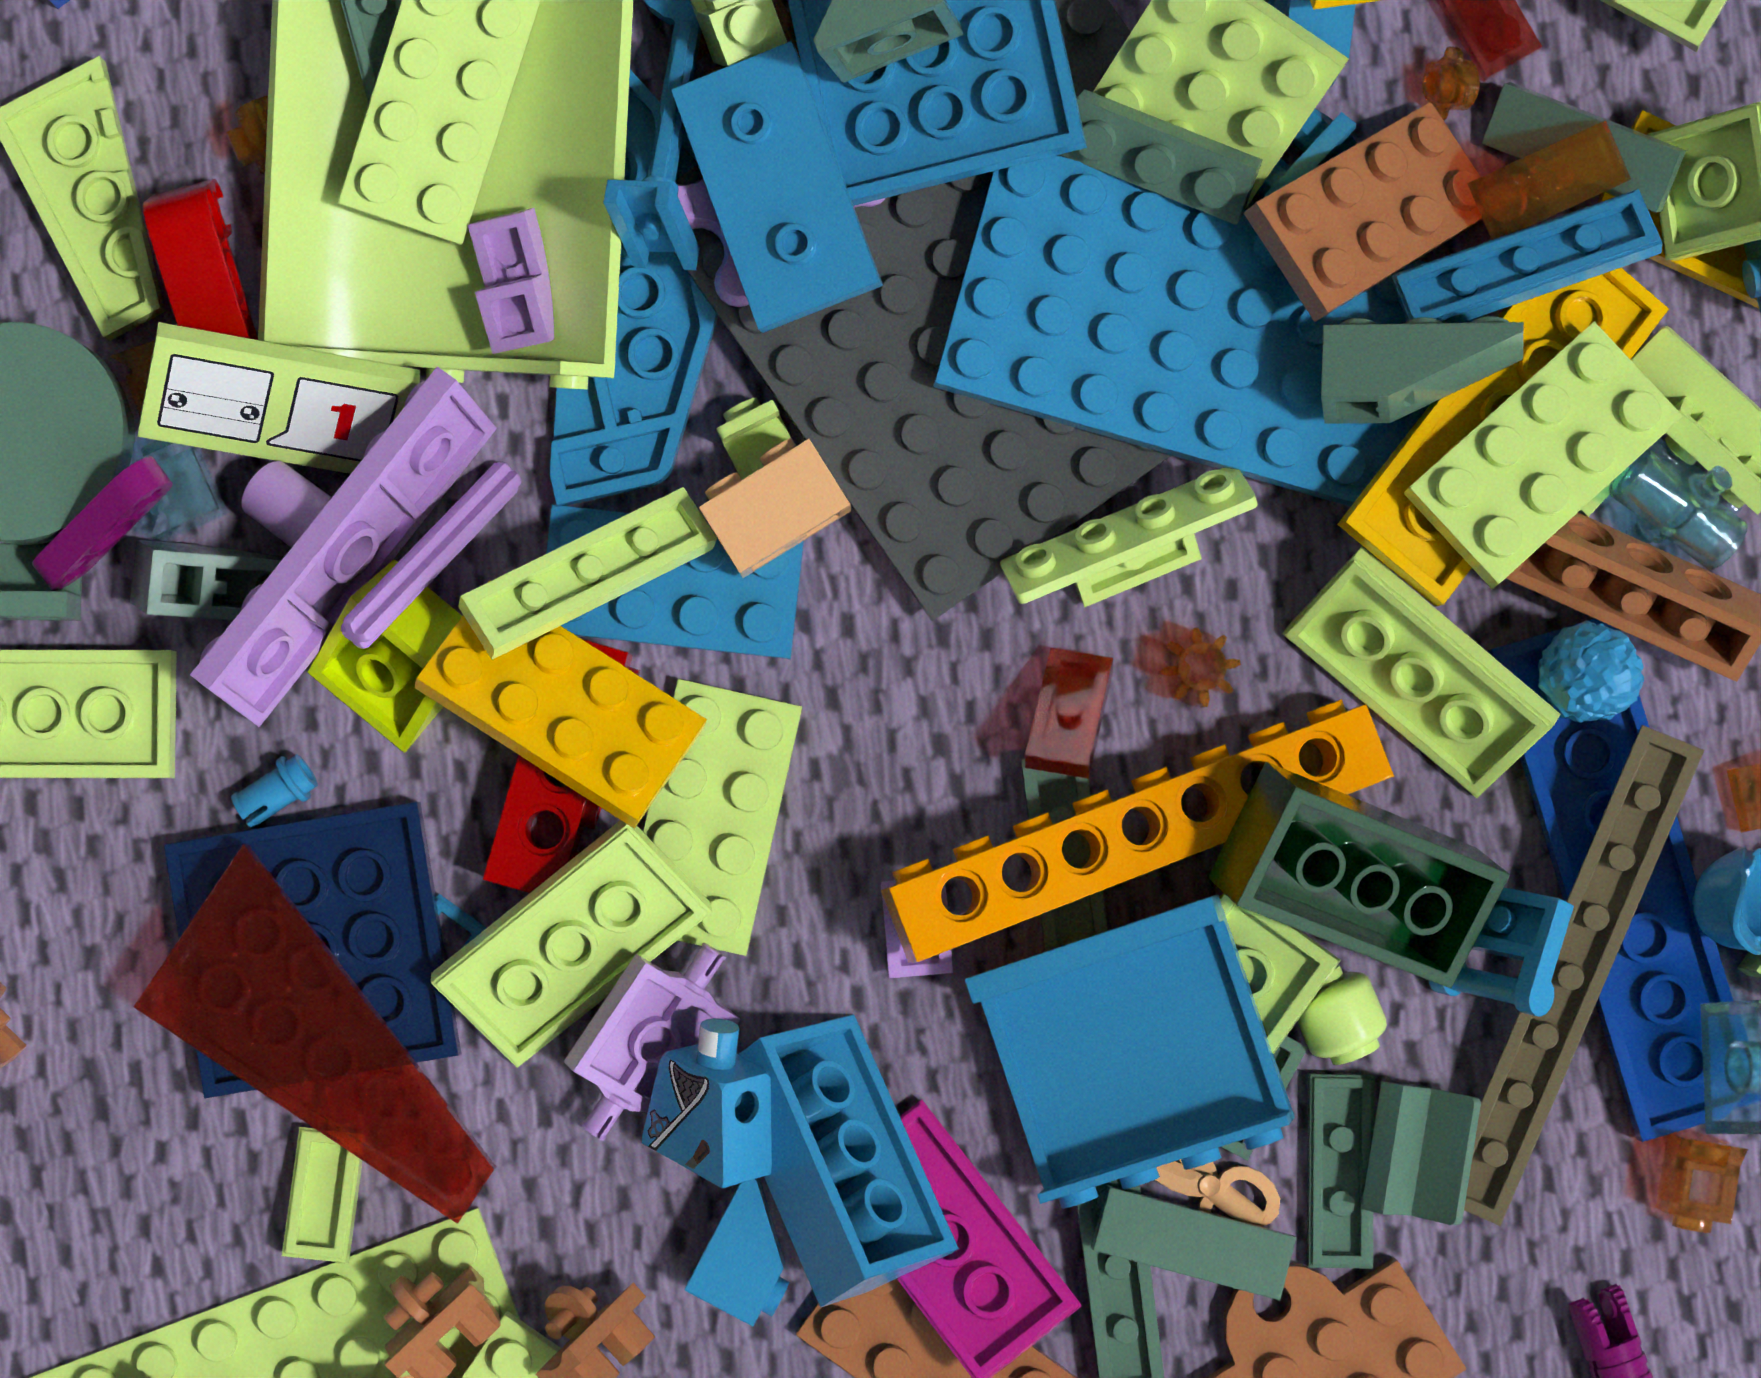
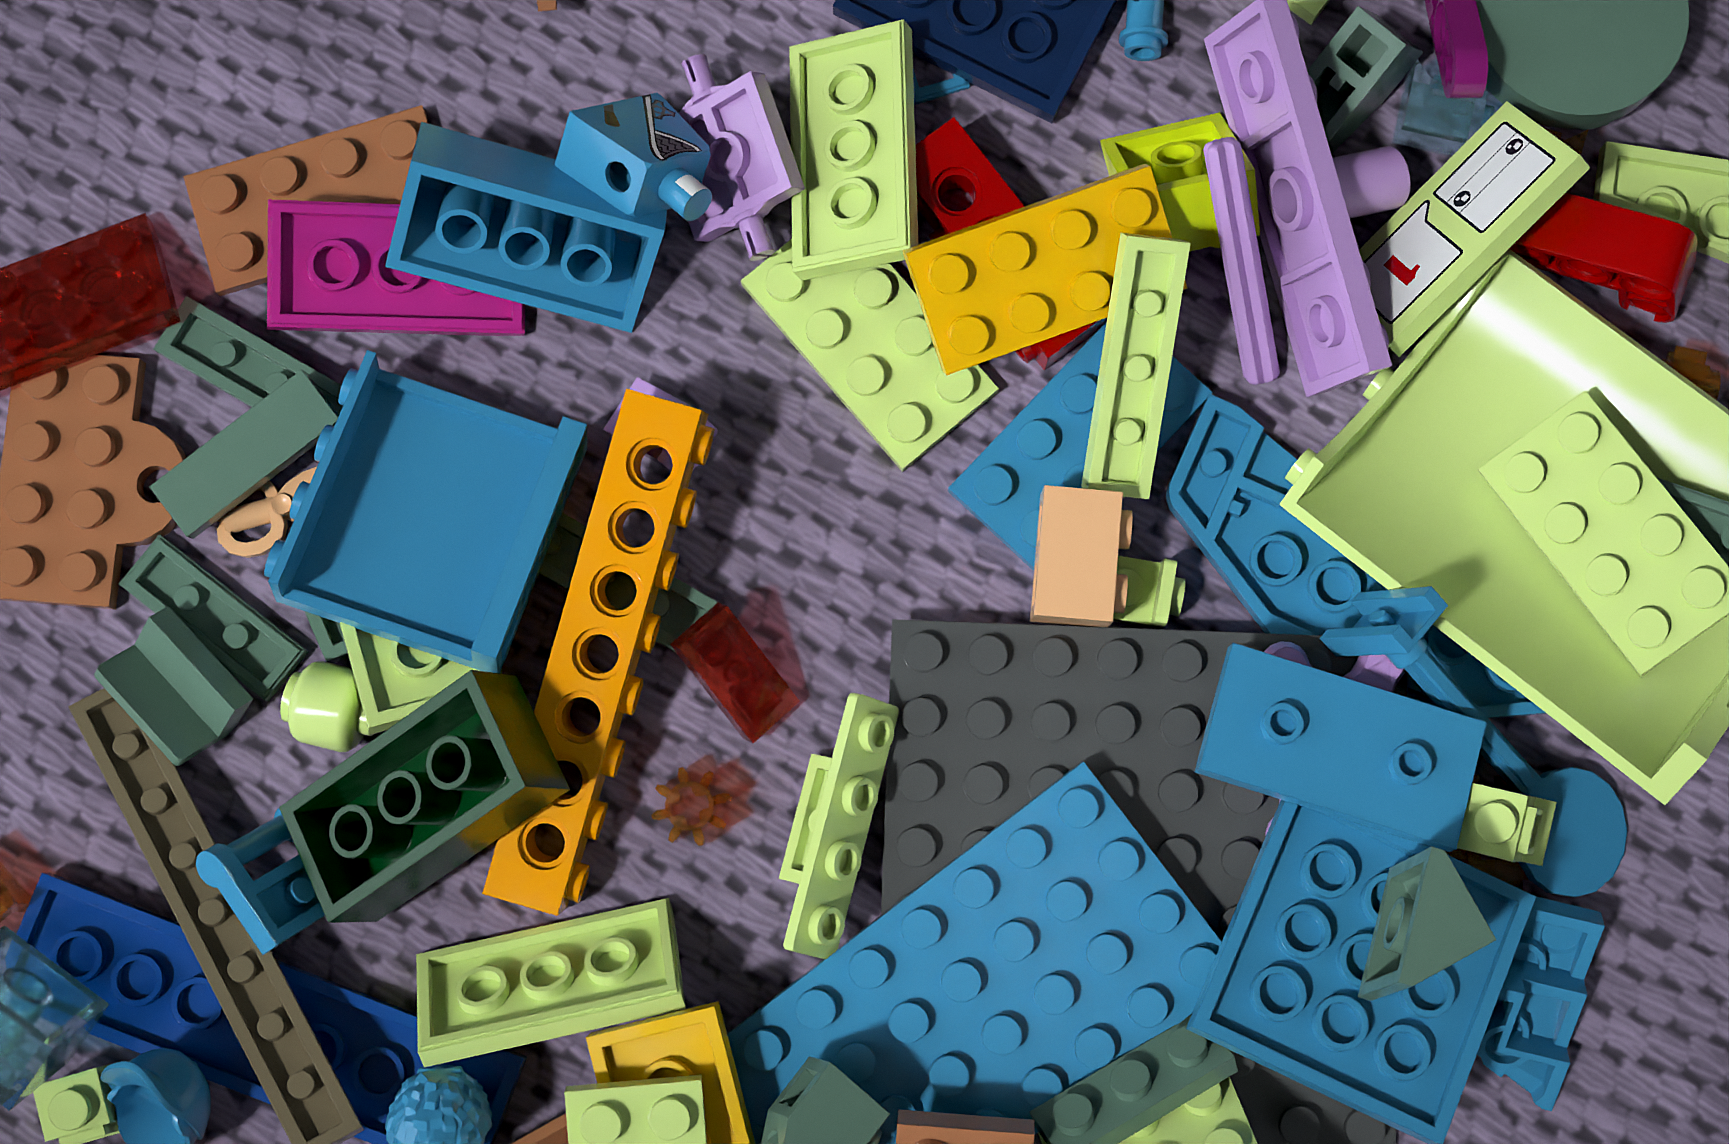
camera: 130 degrees right, 5 degrees down
(516, 280) = (1403, 483): lavender slope -> none
(742, 1259) = (507, 101): dark azure slope -> none

